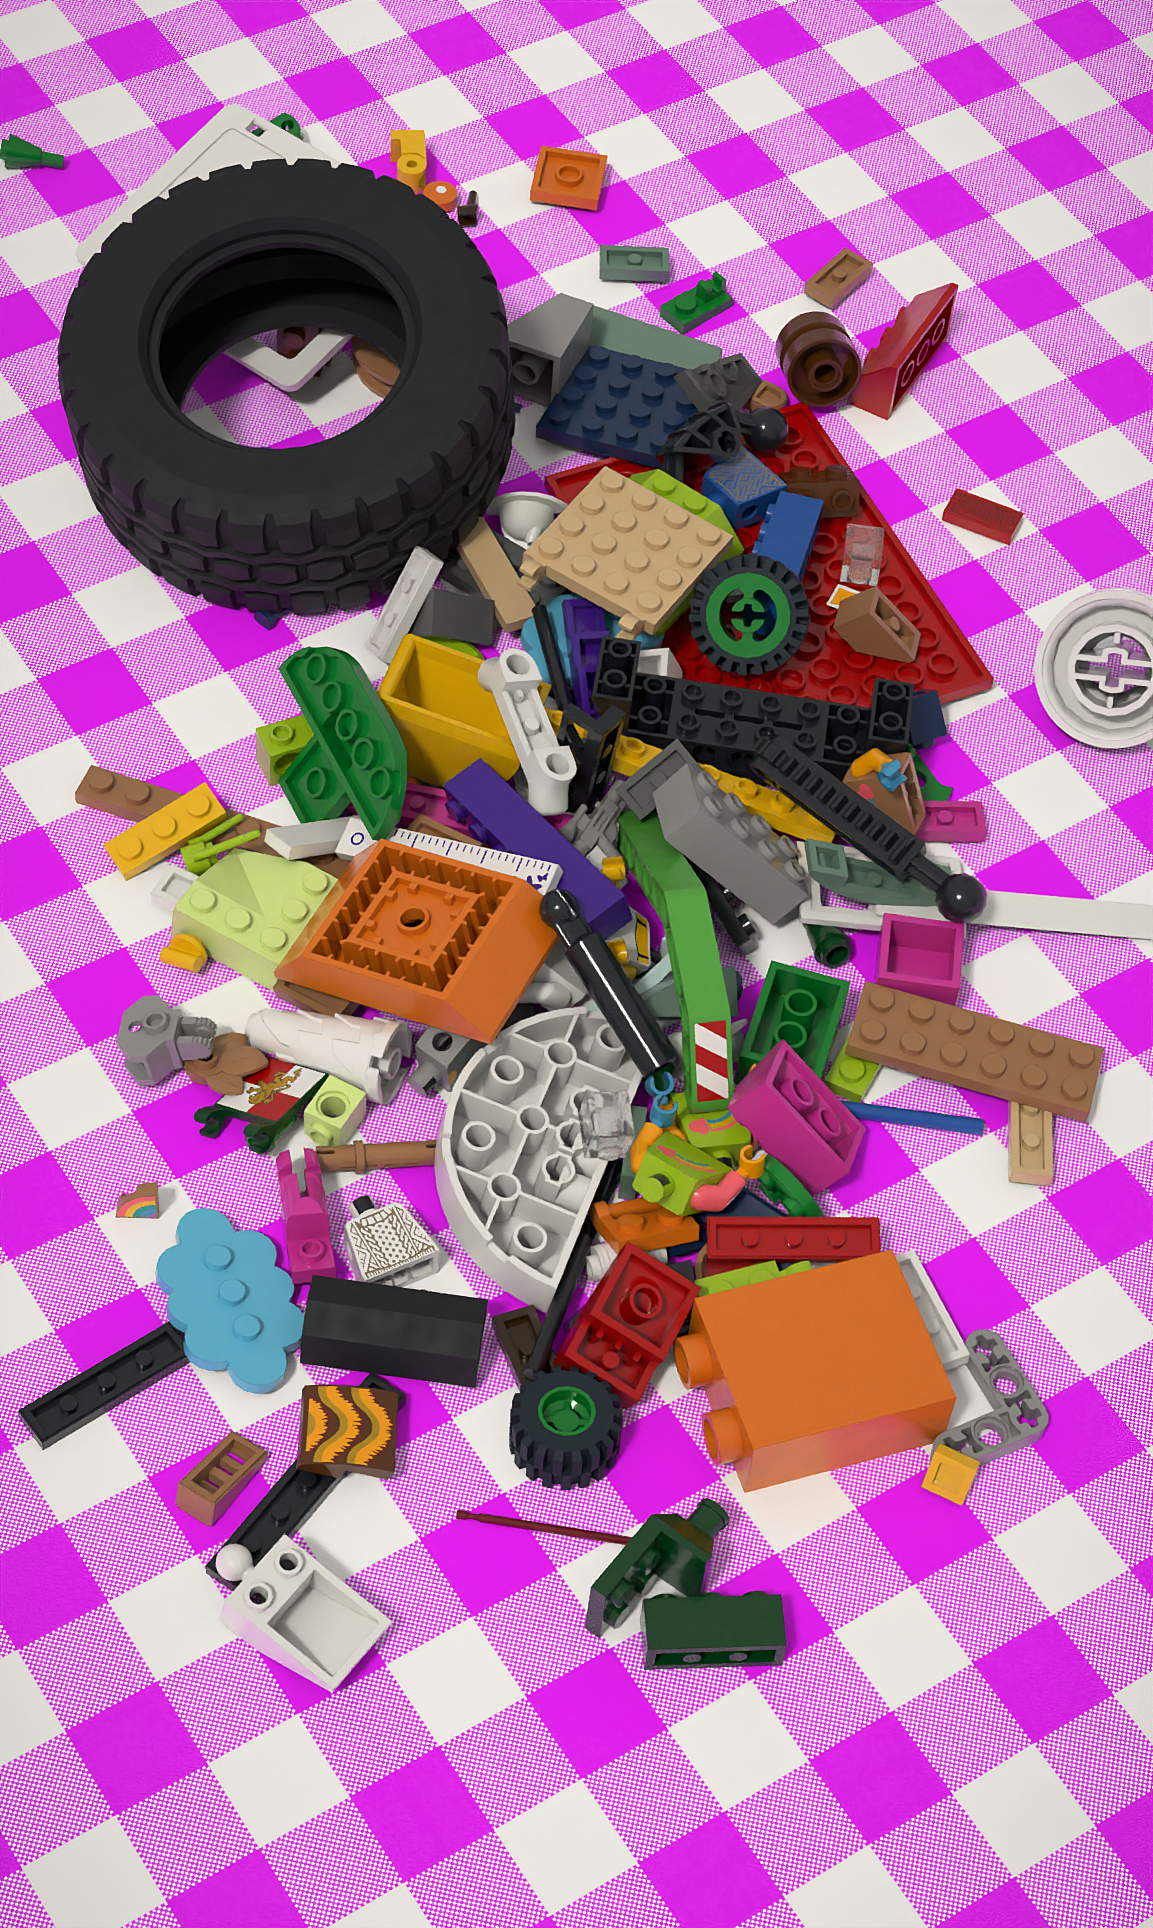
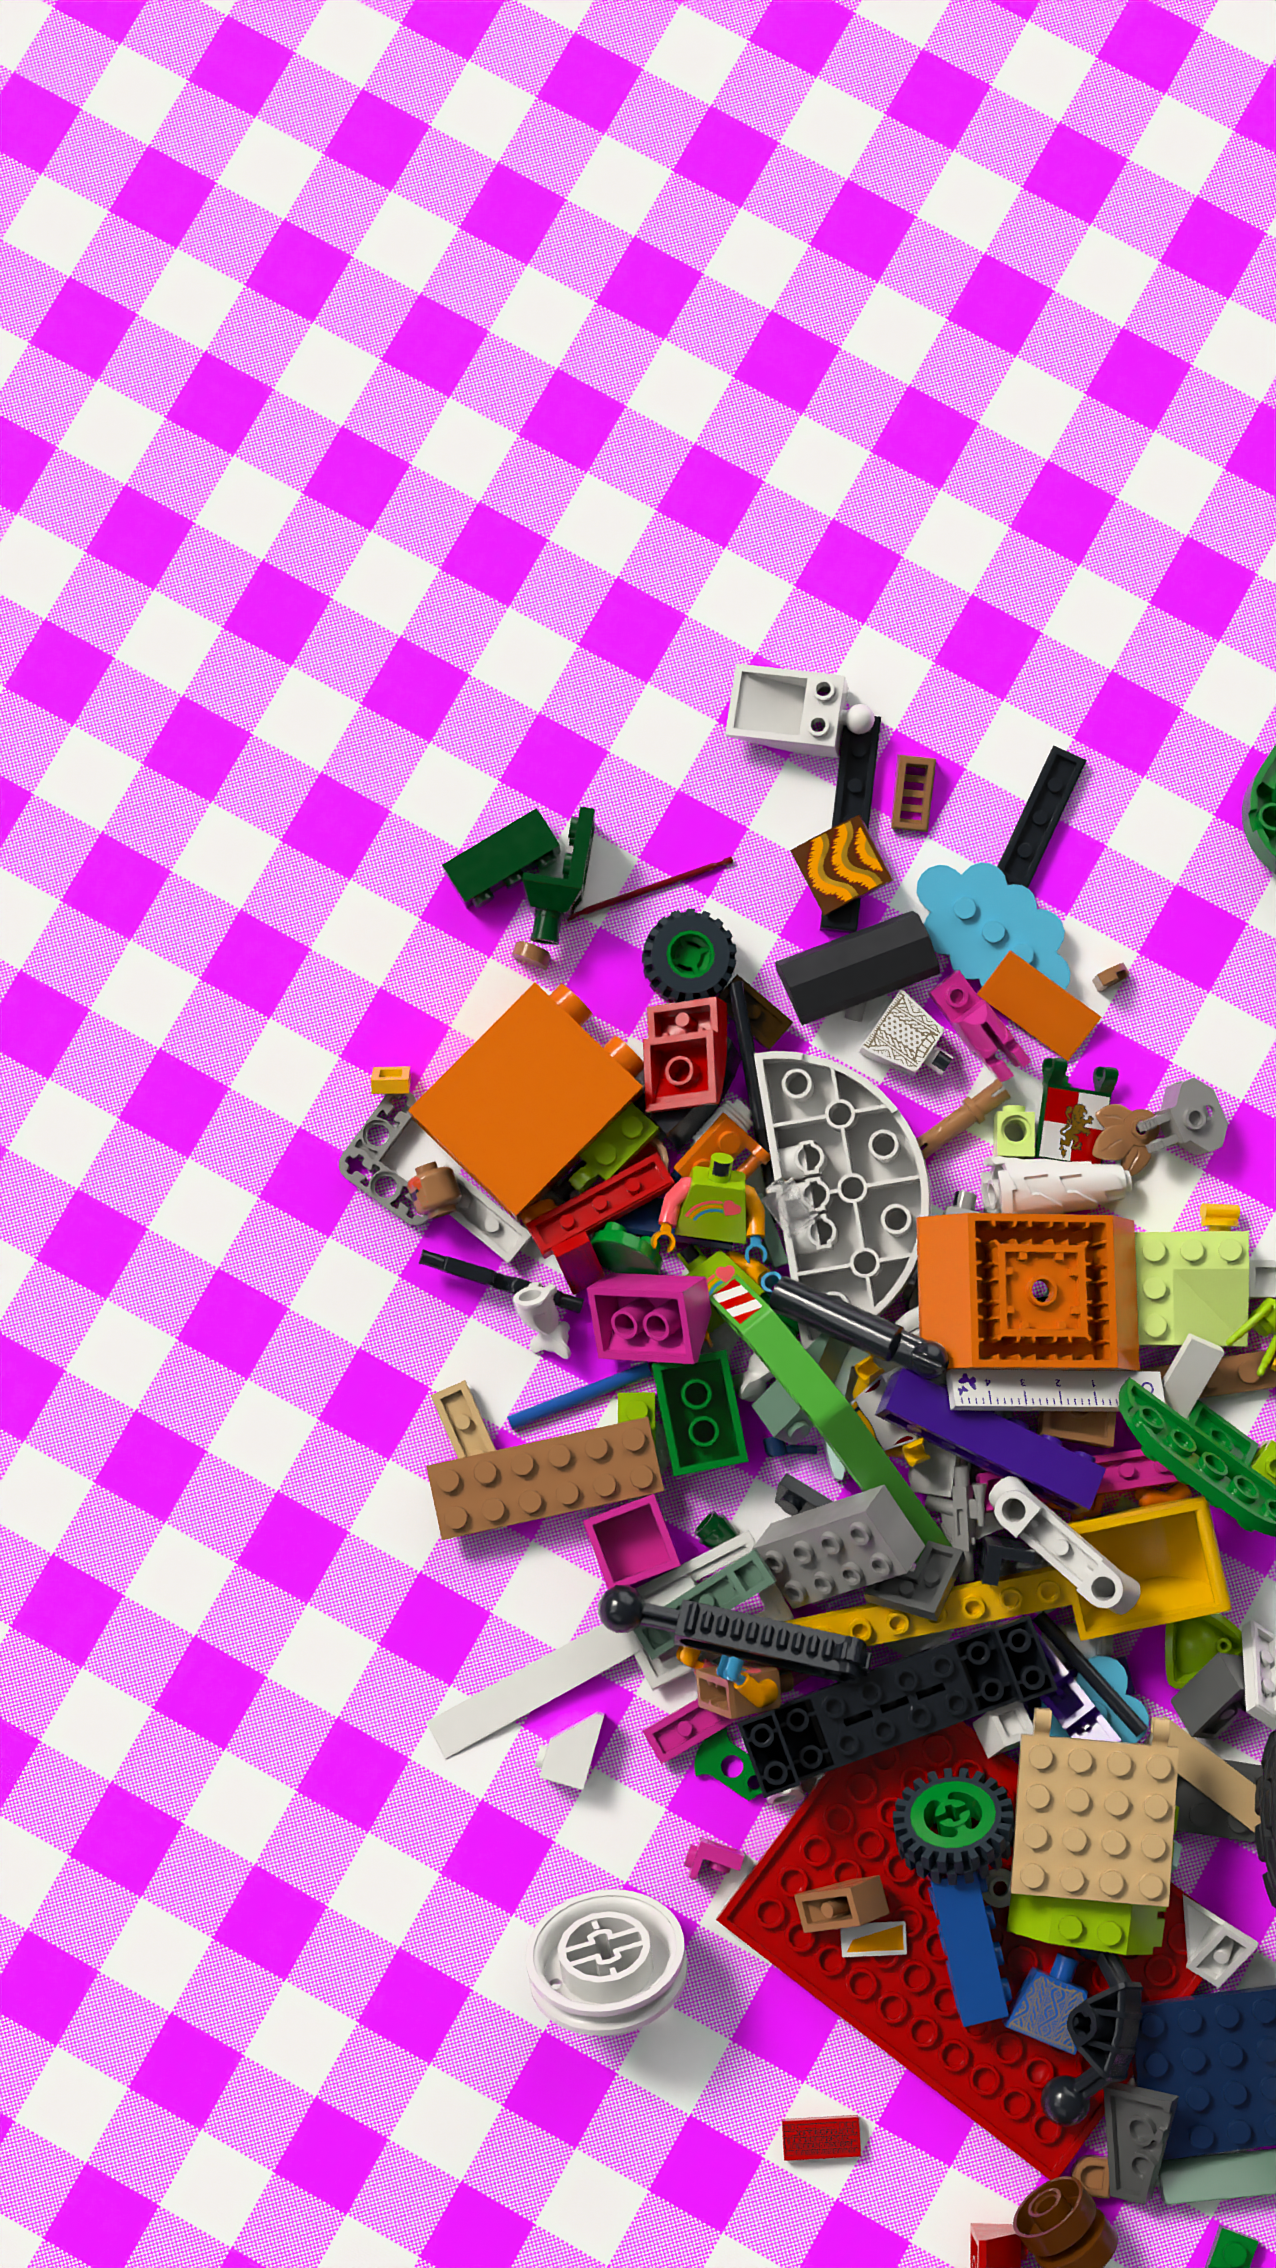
camera: 155 degrees right, 30 degrees up
(231, 1211) = (1039, 1005): none -> orange piece
(525, 514) = (1223, 1872): white helmet -> none
(565, 465) = (1213, 1944): none -> white slope
(740, 1526) = (531, 954): none -> medium nougat tile
(834, 485) = (978, 2057): reddish brown bracket -> none
(844, 1205) = (578, 1262): none -> red tile
(862, 554) = (899, 1989): clear brick -> none
(905, 1179) = (539, 1313): none -> white animal
(926, 719) = (760, 1826): dark blue brick -> none
(941, 1250) = (492, 1278): none -> black piece
(960, 1336) = (434, 1190): none -> medium nougat head
(968, 723) = (720, 1857): none -> dark pink bracket
(1059, 849) = (570, 1752): none -> white slope

